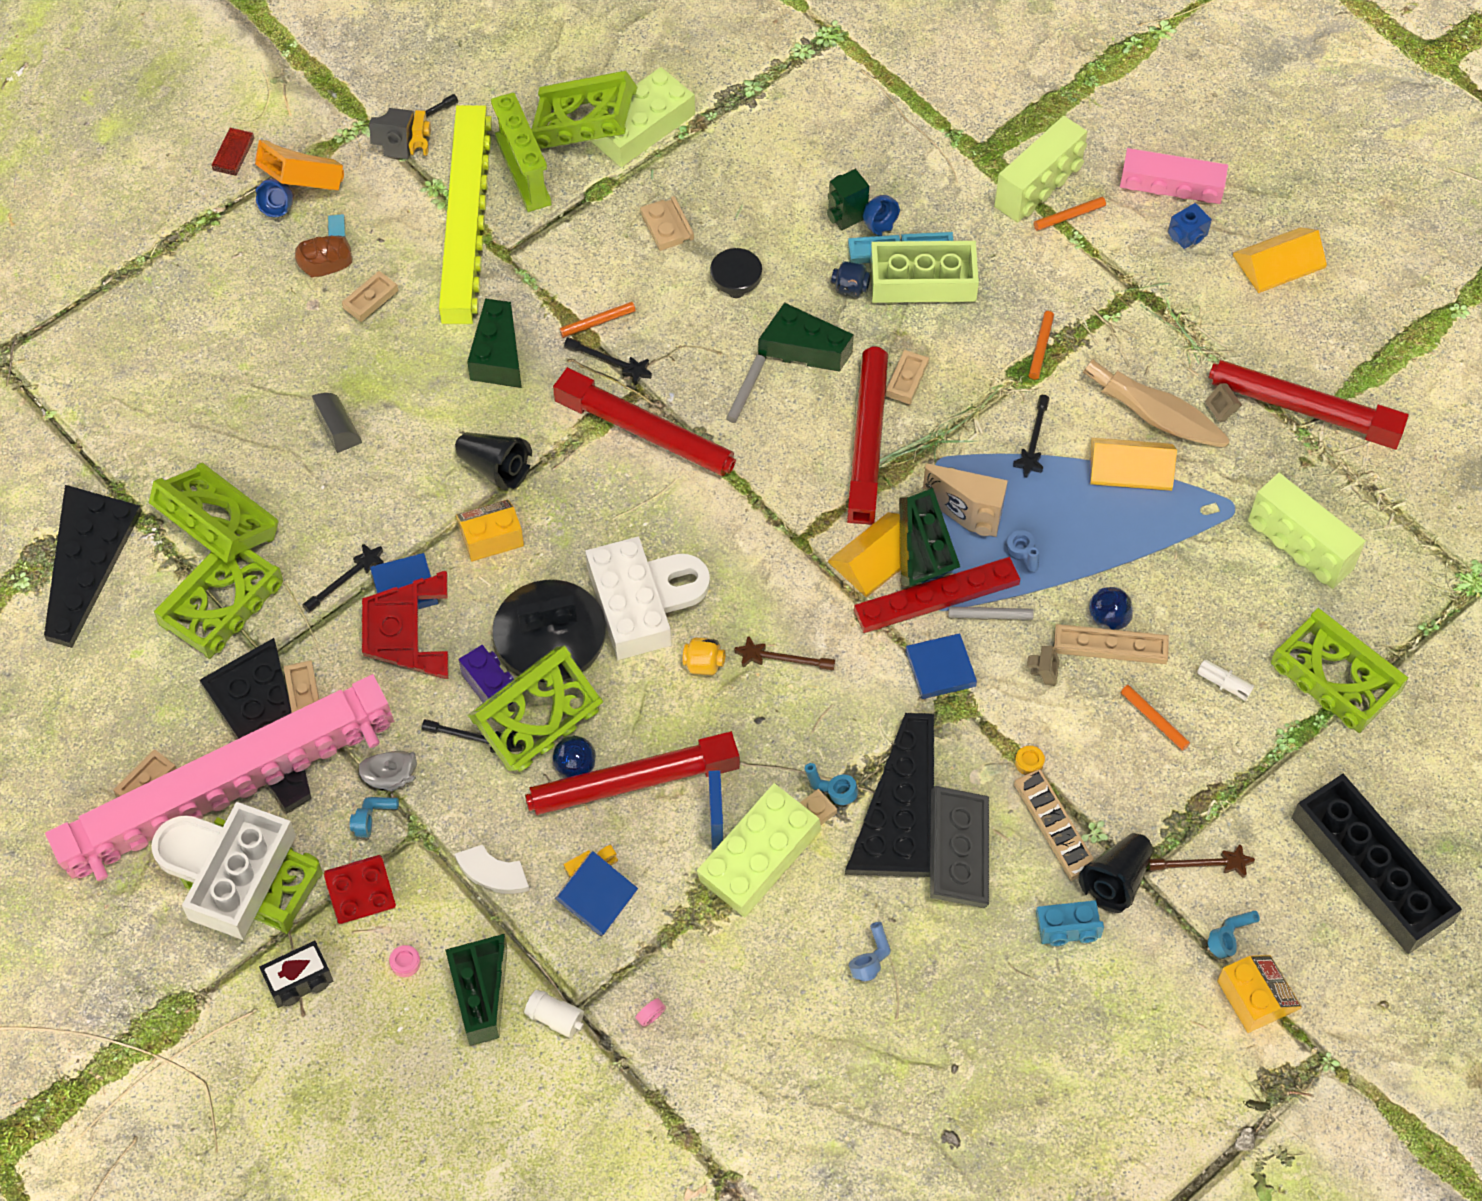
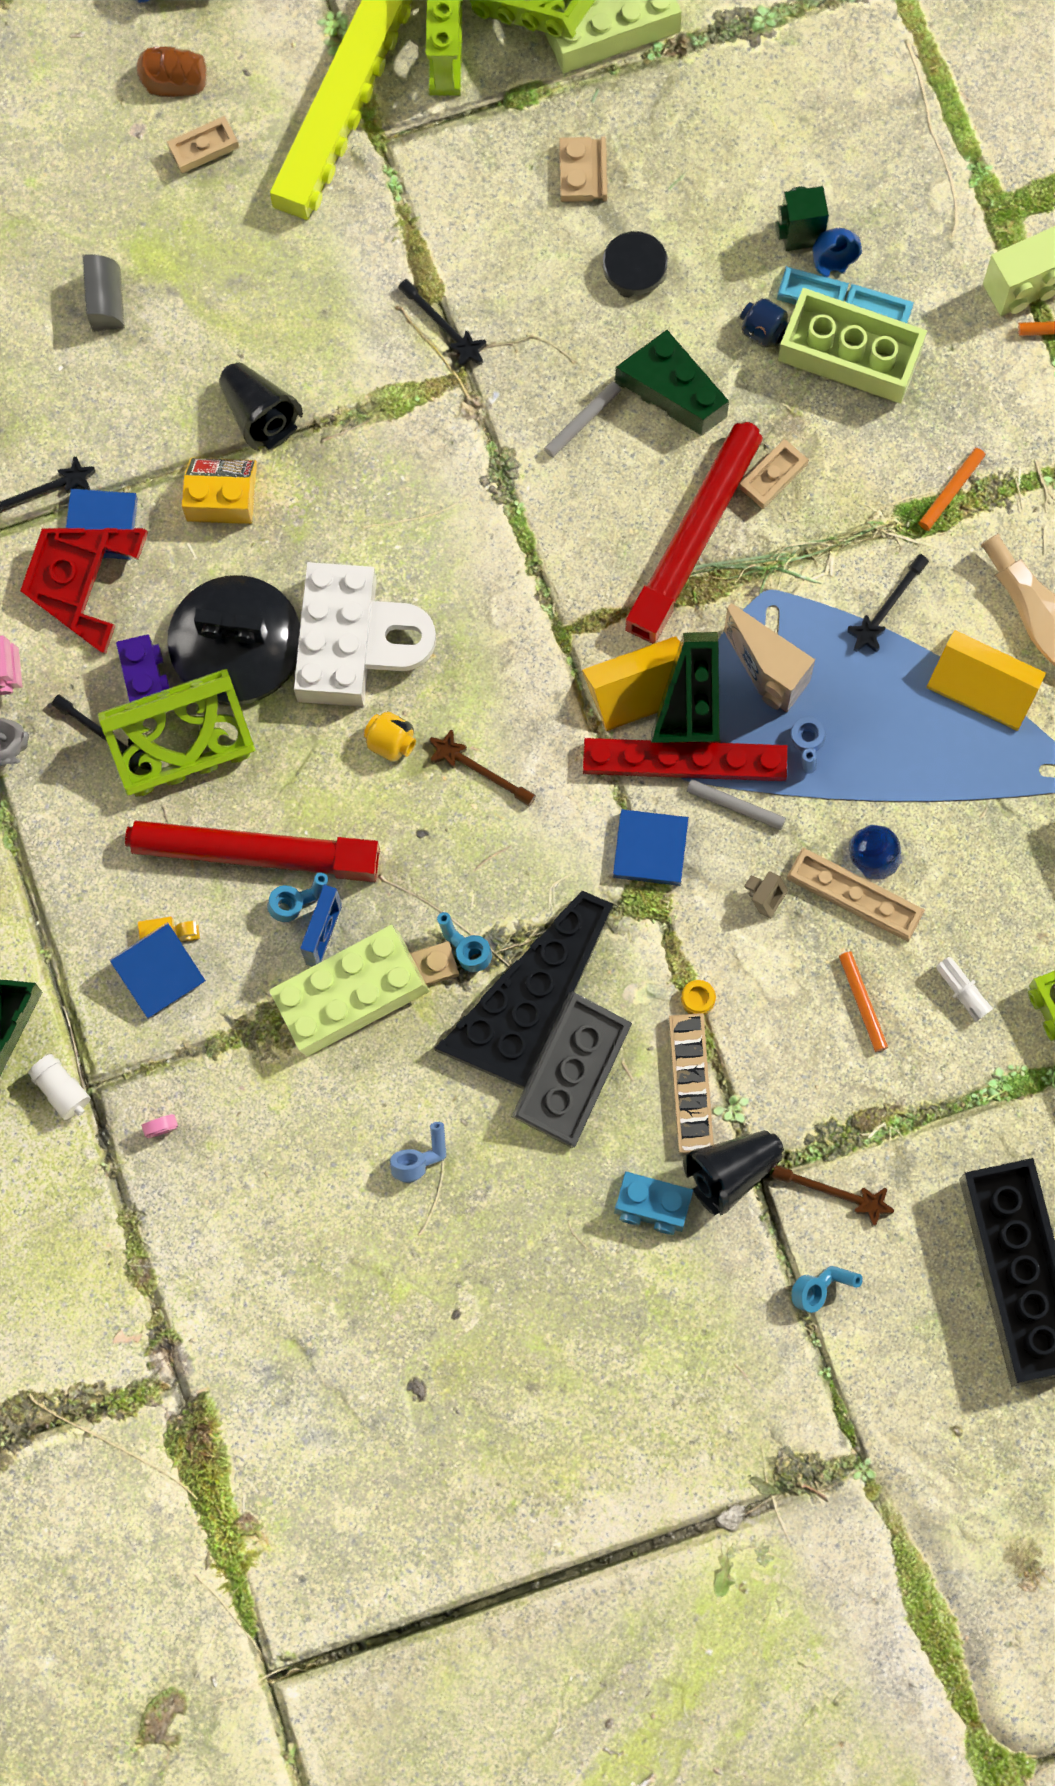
camera: 25 degrees right, 15 degrees up
(336, 225) = (202, 38): medium azure piece -> none
(492, 873) = (60, 902): white tile -> none
(494, 346) = (316, 261): dark green wedge -> none
(574, 756) = (201, 801): clear blue hair -> none
(582, 395) = (392, 364): red brick -> none
(597, 319) = (450, 267): orange bar -> none
(678, 806) = (294, 899): none -> dark azure plate
(1257, 991) = (824, 1363): yellow slope -> none

